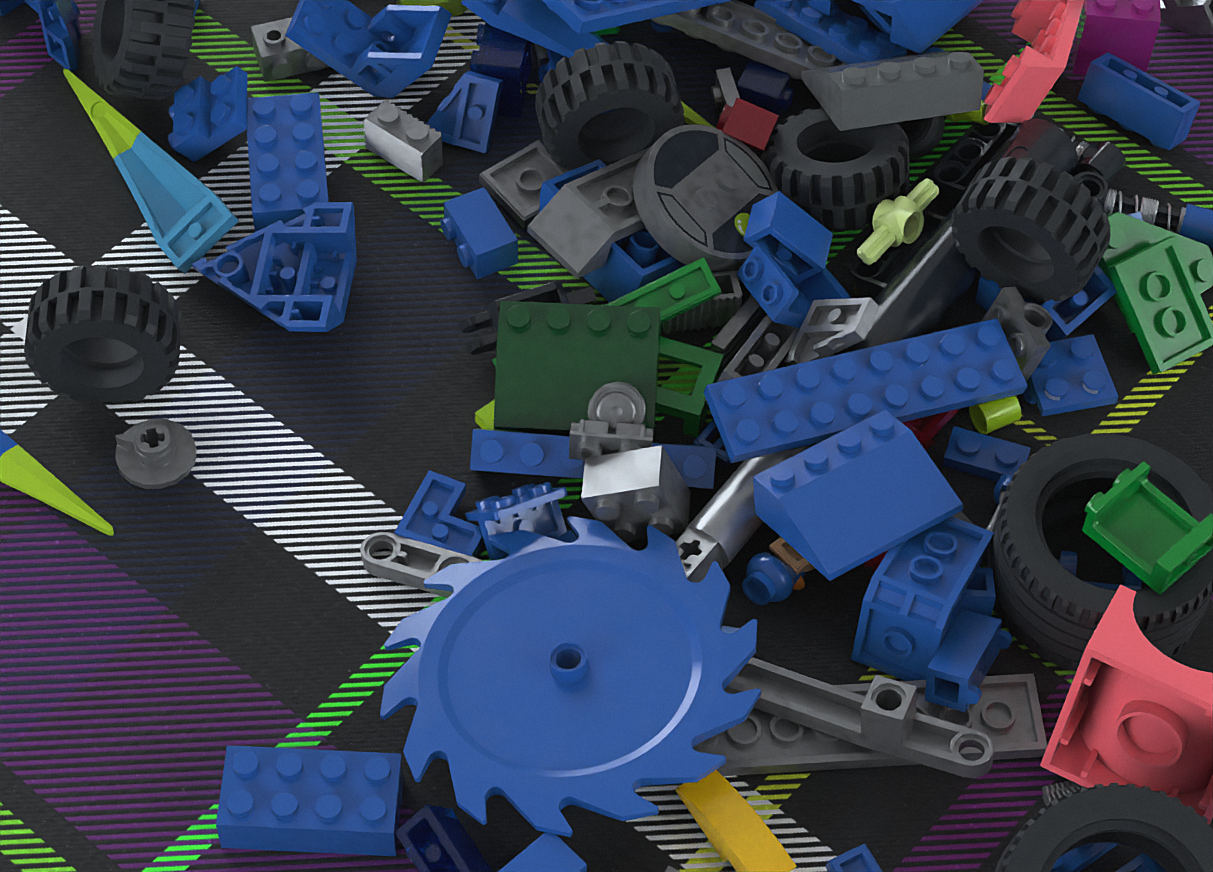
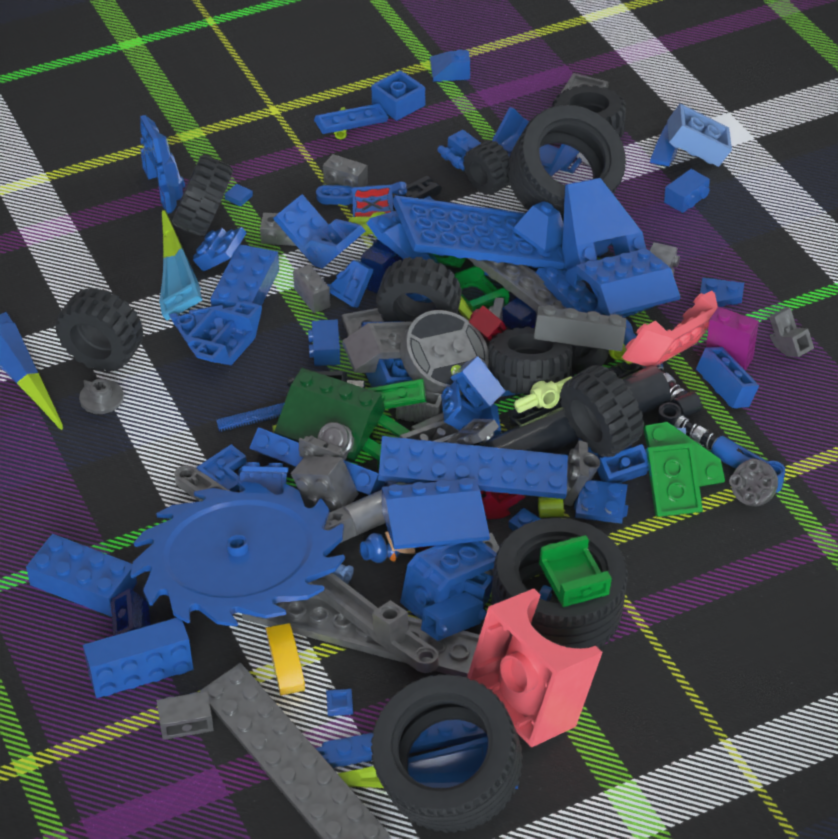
camera: 25 degrees right, 10 degrees down
(436, 400) = (249, 417): none -> blue axle
(696, 89) = (475, 278): none -> green panel

